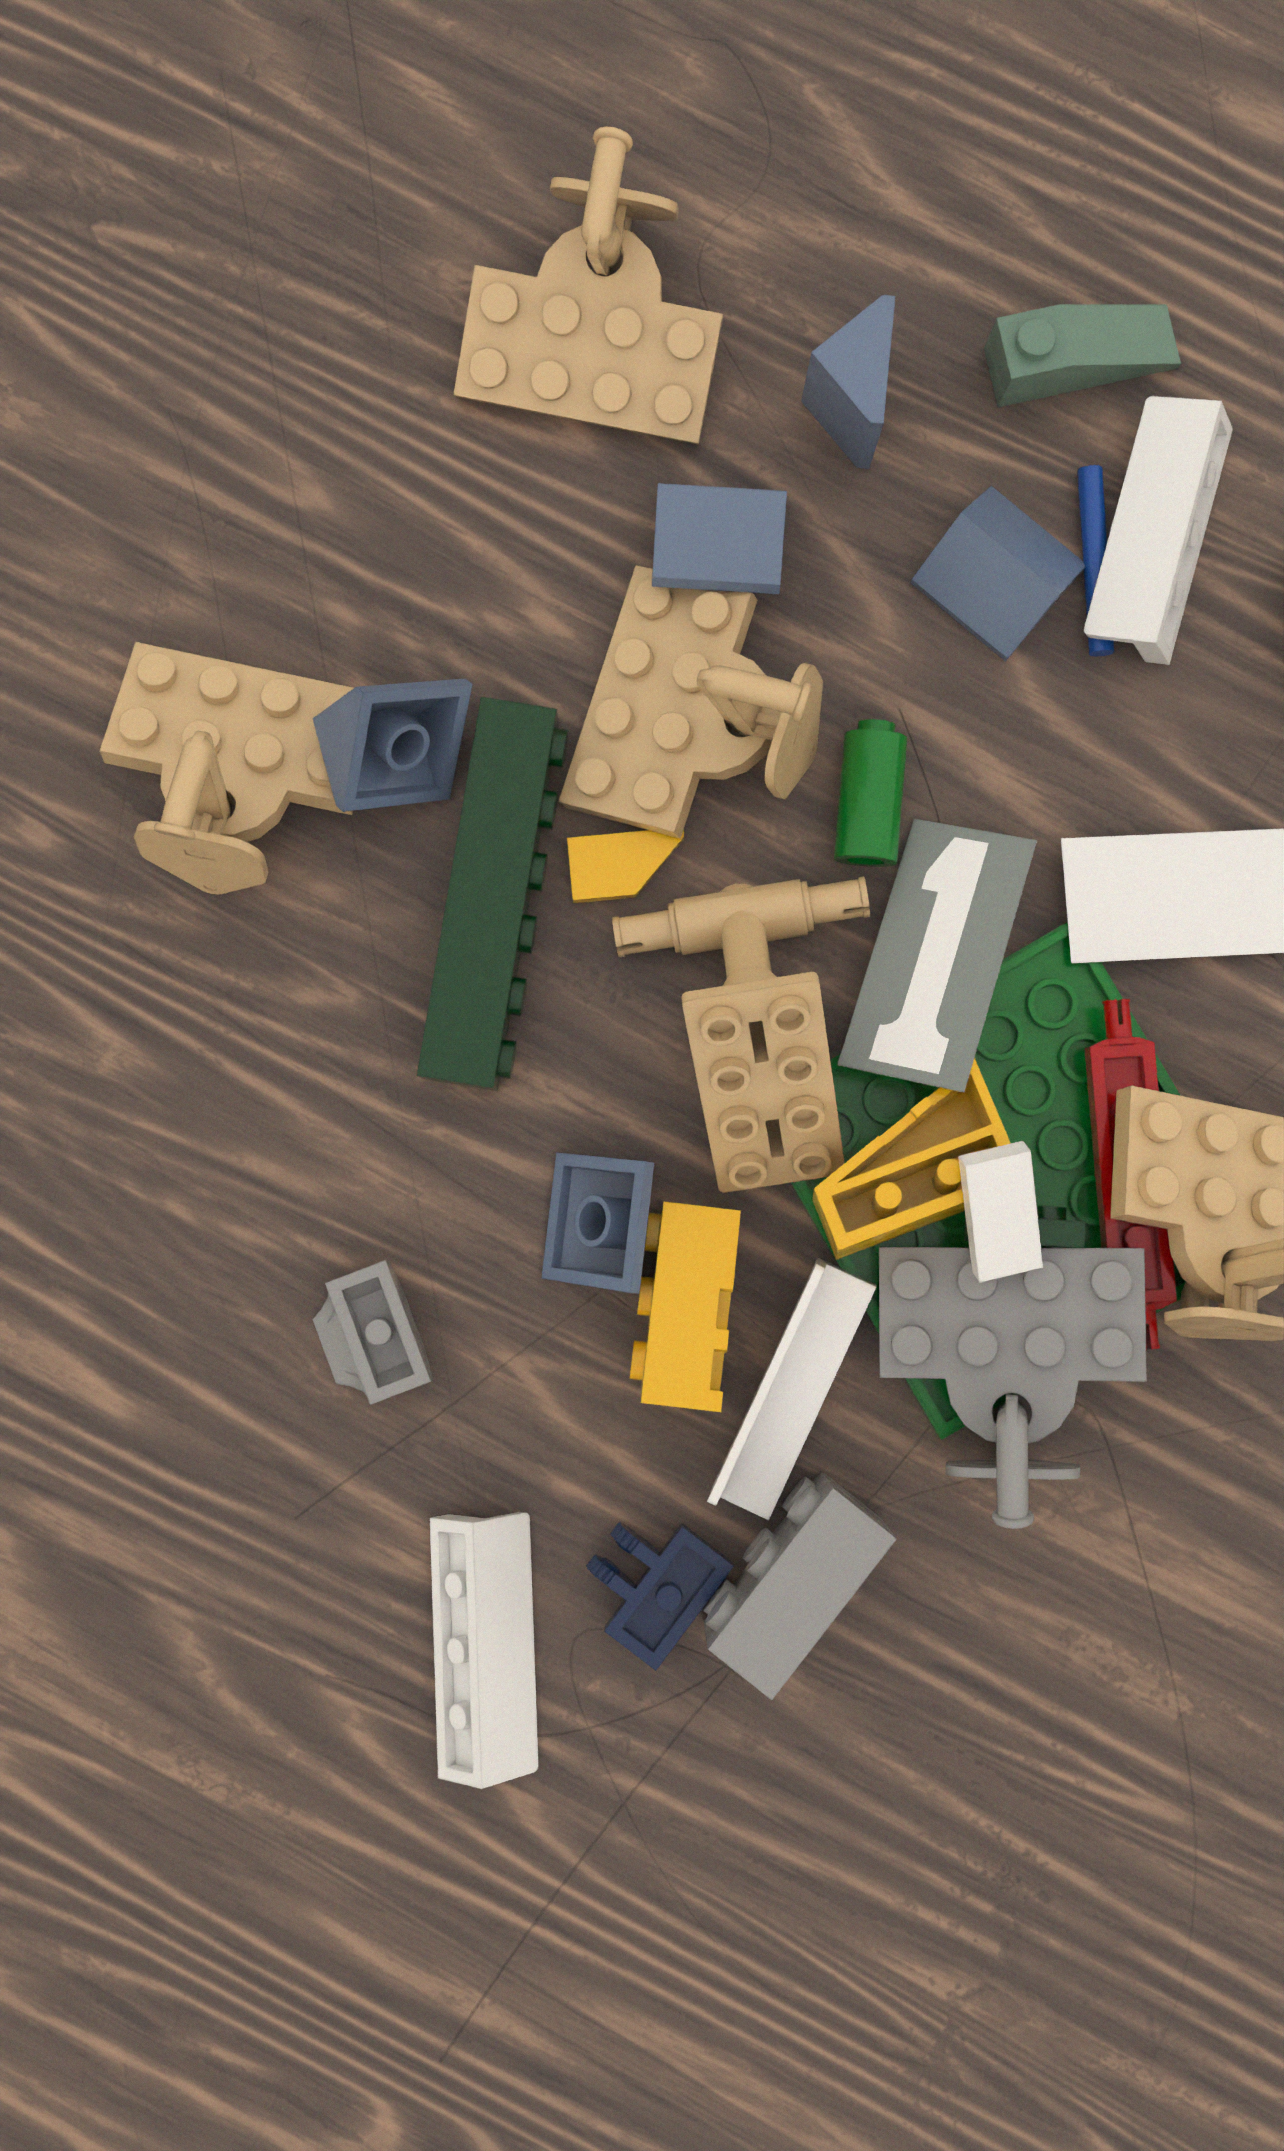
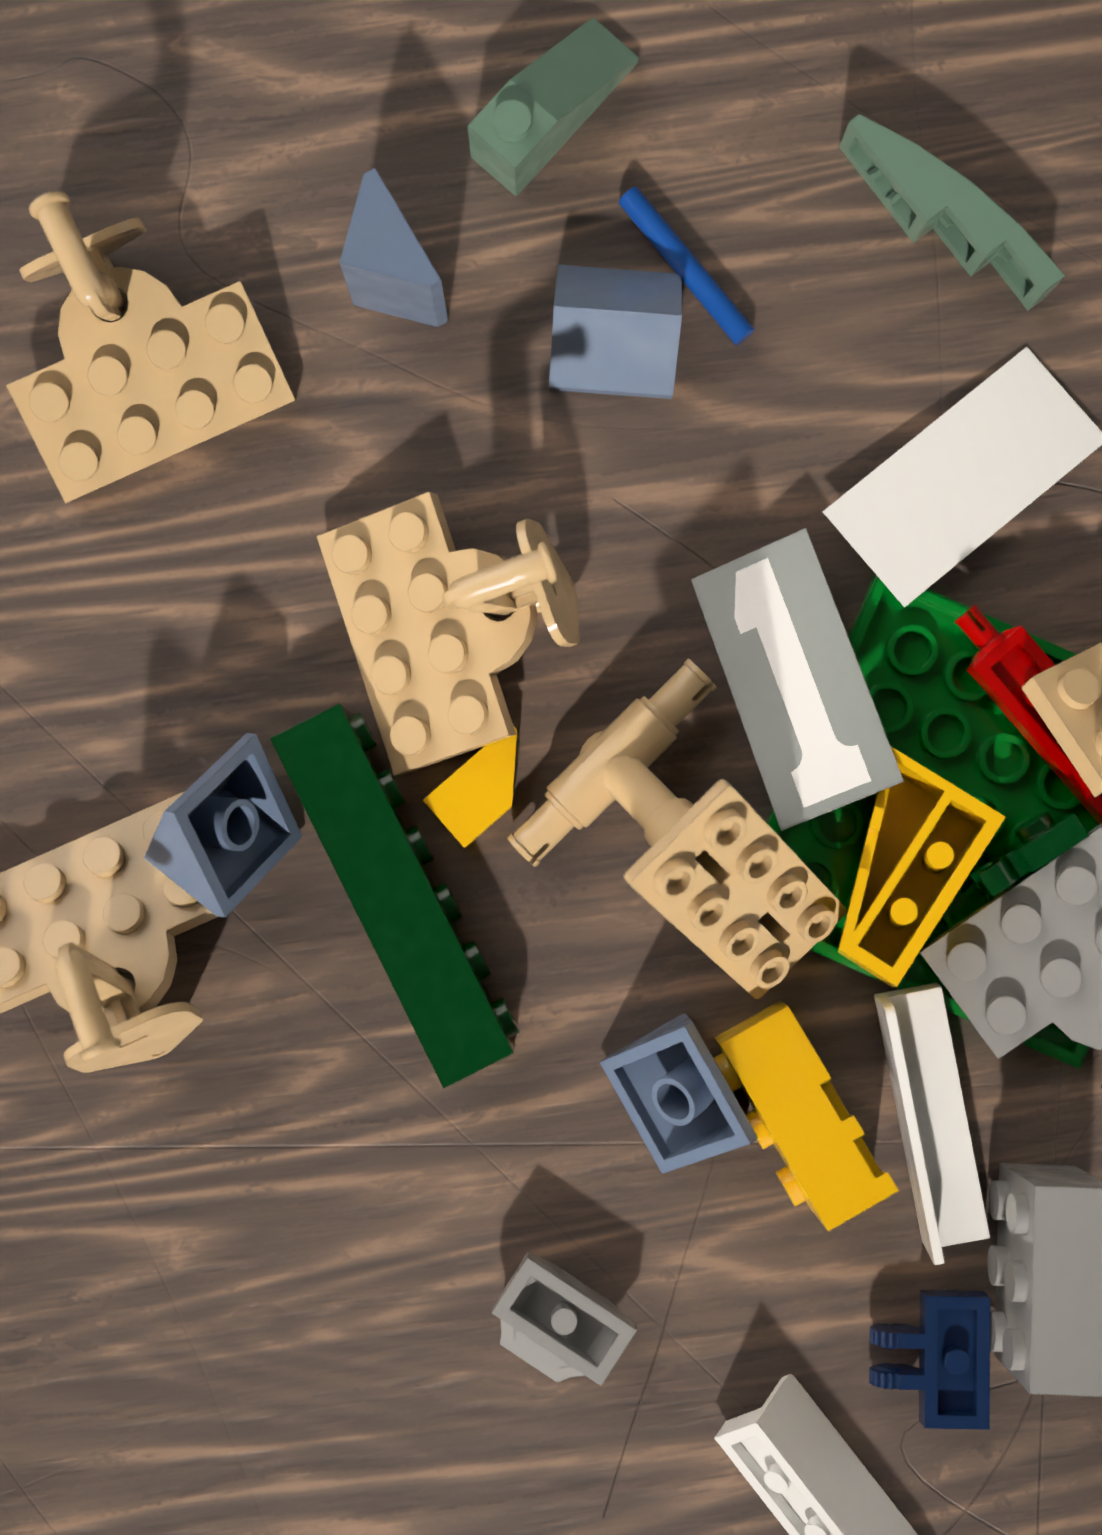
camera: 40 degrees left, 0 degrees up
(719, 538) = (371, 468): sand blue slope -> none
(870, 795) = (644, 586): green brick -> none
(1001, 1211) = (1005, 858): white tile -> none
(1159, 525) = (717, 200): white panel -> none

